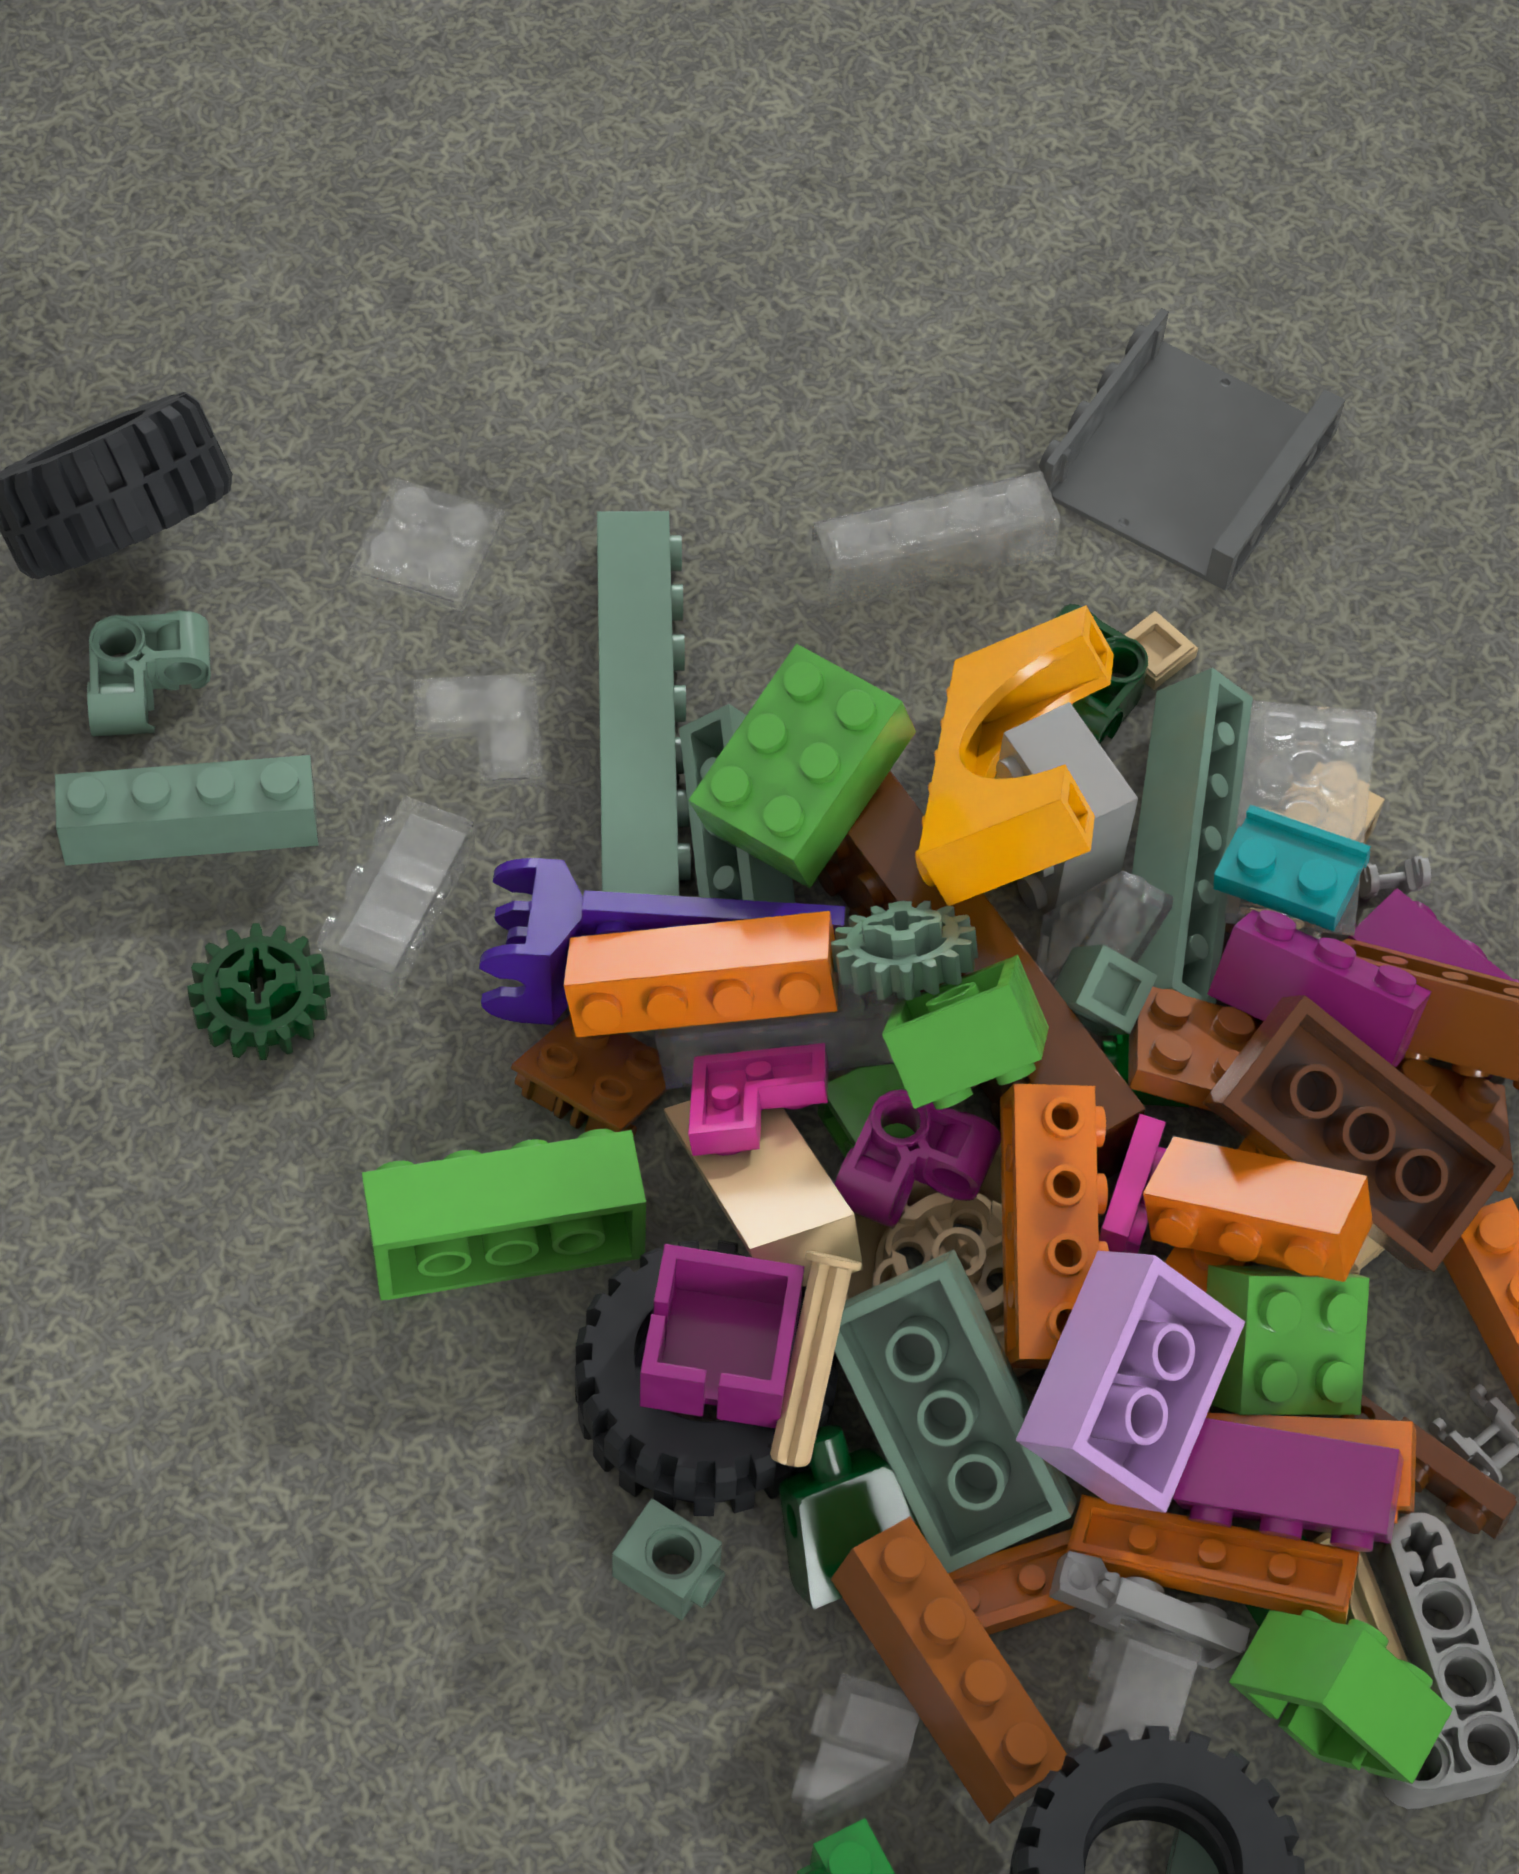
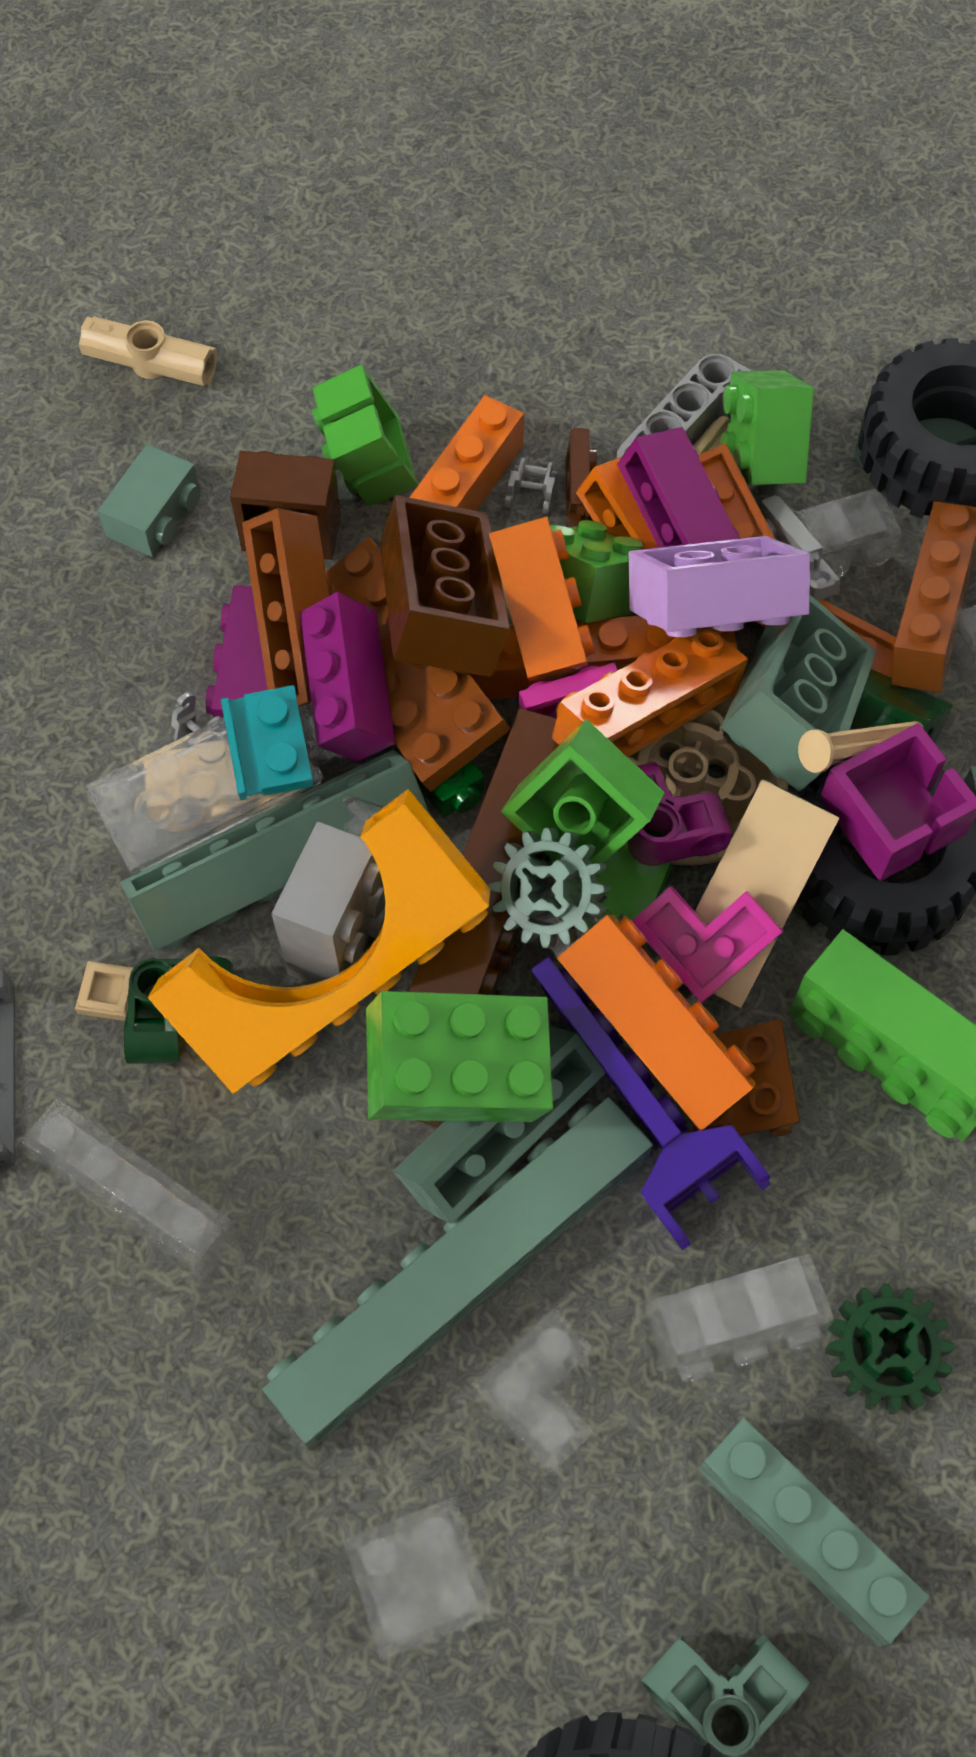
camera: 125 degrees left, 5 degrees up
(1104, 989) = (451, 791): sand green brick -> none

